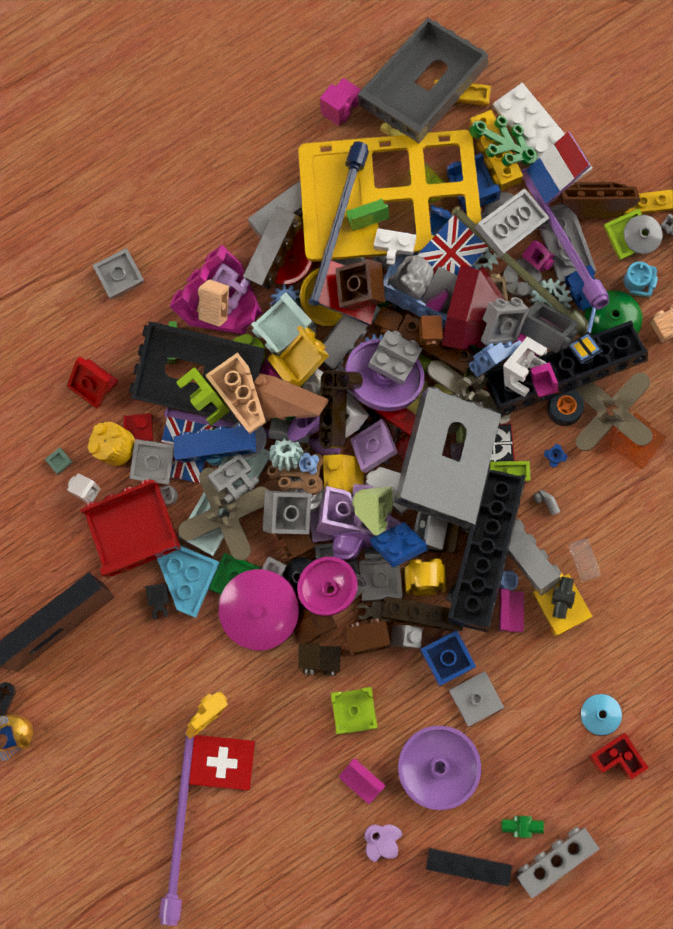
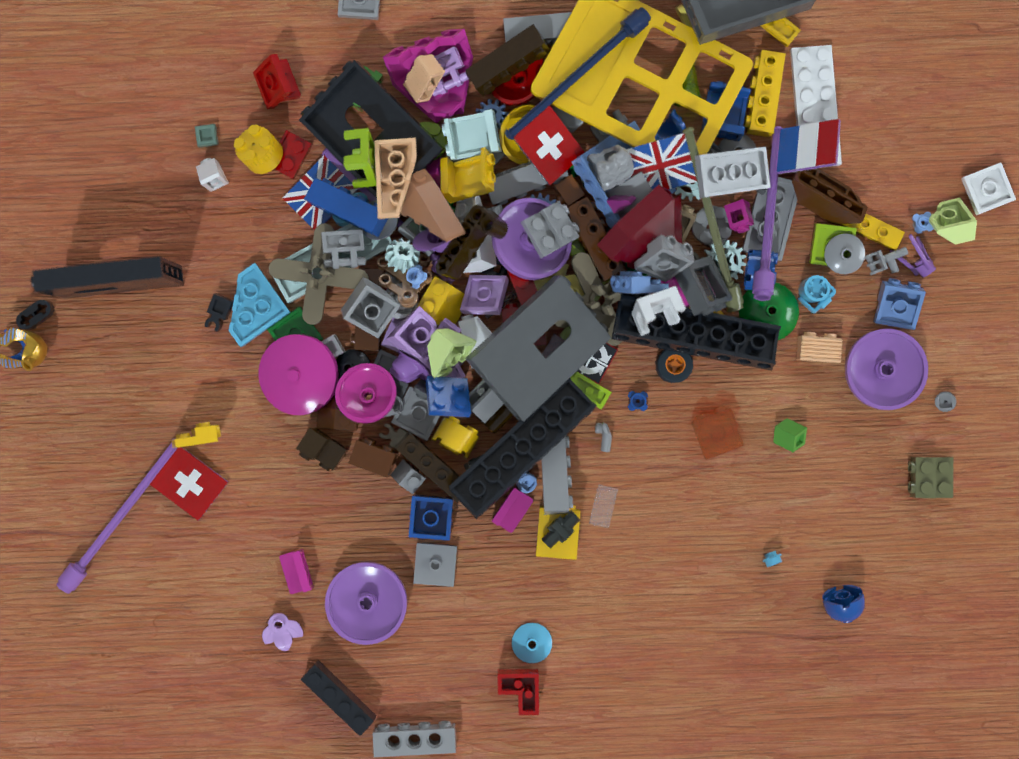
camera: 20 degrees right, 10 degrees up
(131, 528) = (232, 235): red panel -> none
(152, 461) = (284, 187): light grey plate -> none
(169, 494) = (280, 225): light grey tile -> none
(354, 711) = (325, 510): lime panel -> none
(360, 285) = (559, 145): reddish brown brick -> none
(367, 214) = (609, 83): bright green panel -> none
(394, 243) = (615, 125): white plate -> none
(430, 330) = (595, 226): dark orange brick -> none
(522, 826) = (405, 693): green axle -> none
(525, 154) = (789, 114): green plant -> none
(544, 380) = (667, 332): dark pink panel -> none
(585, 346) = (724, 323): piece -> none
(622, 419) = (713, 408): dark tan piece -> none

